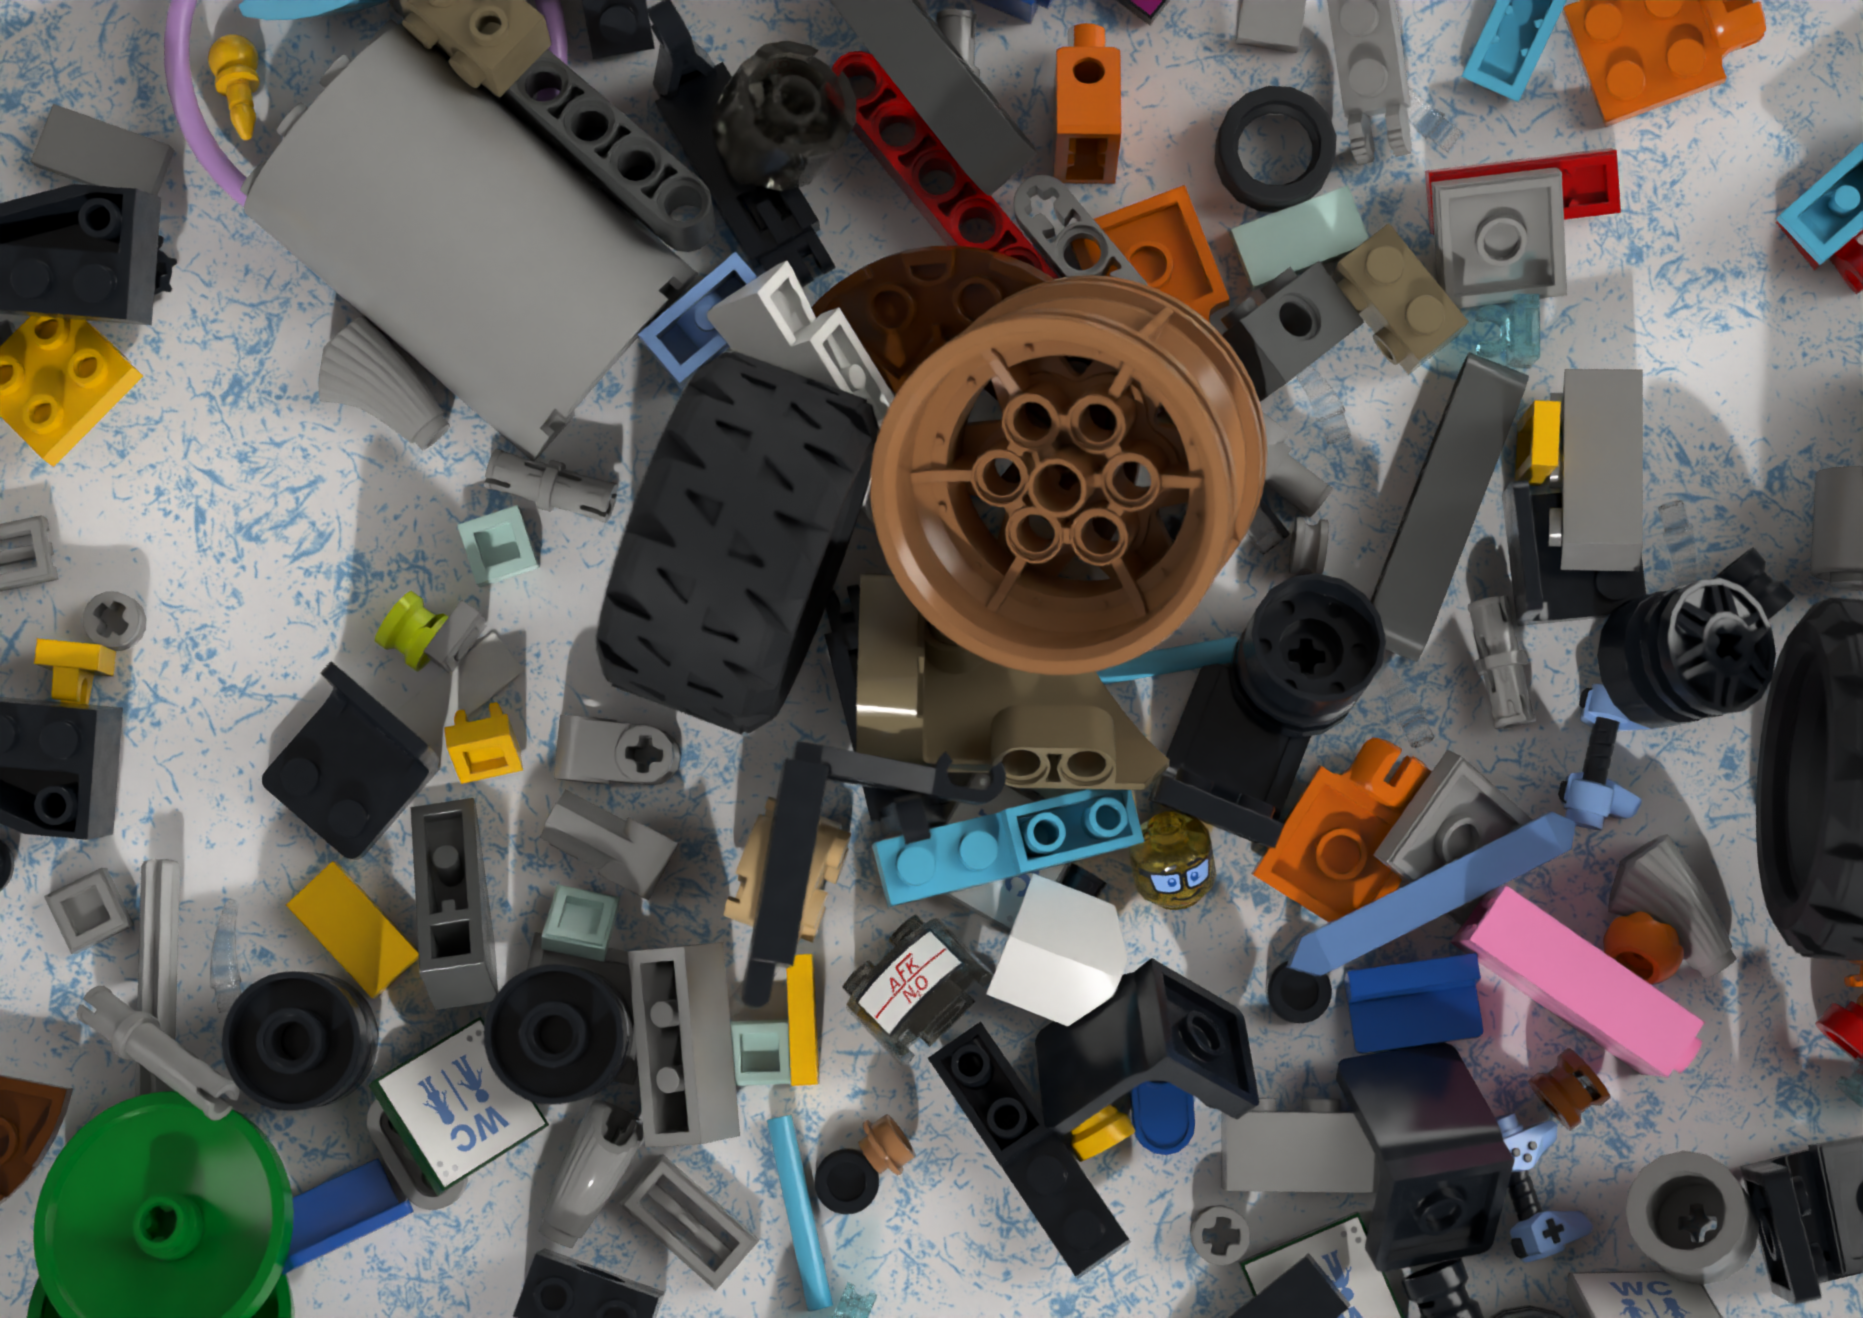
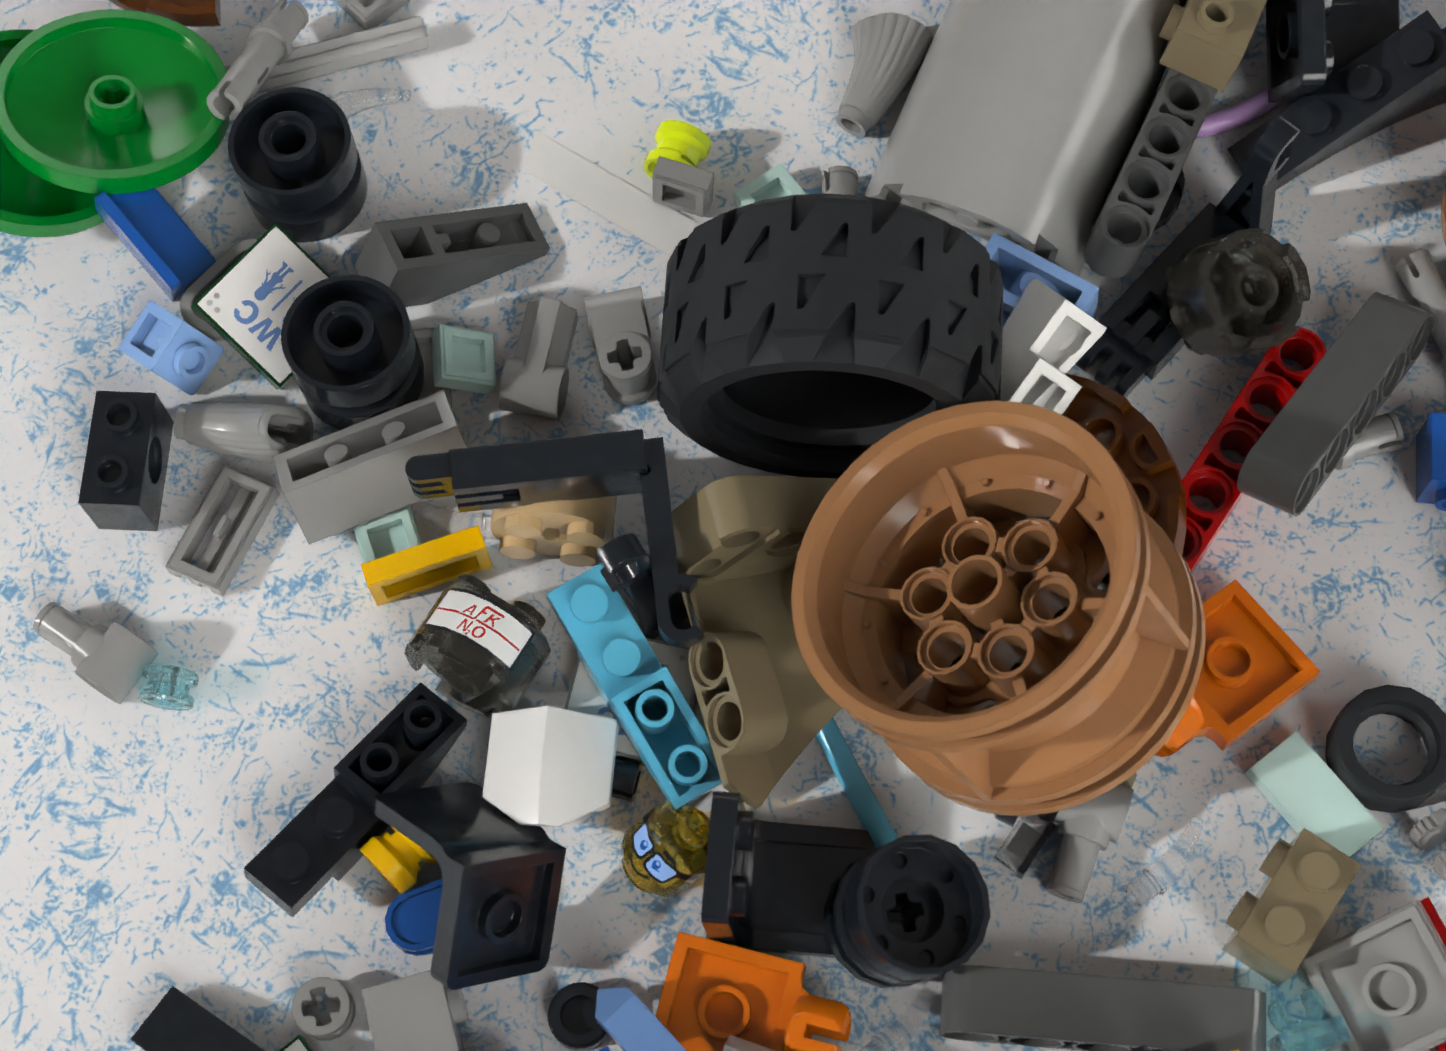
camera: 75 degrees right, 15 degrees down
(348, 774) = (545, 144): black piece -> none
(354, 929) = (411, 182): yellow tile -> none
(466, 1232) = (171, 348): none -> light blue bracket
(483, 746) = (595, 237): yellow tile -> none
(799, 1213) = (254, 619): medium azure bar -> none
(846, 1181) = (292, 652): black tile -> none
(886, 1145) = (332, 674): medium nougat plate -> none
(1065, 208) = (1241, 583): light grey beam -> none
(1086, 108) = (1353, 559): orange torso -> none
(1291, 328) = (1182, 791): dark grey brick -> none
(1308, 546) = (1016, 894): light grey bush -> none

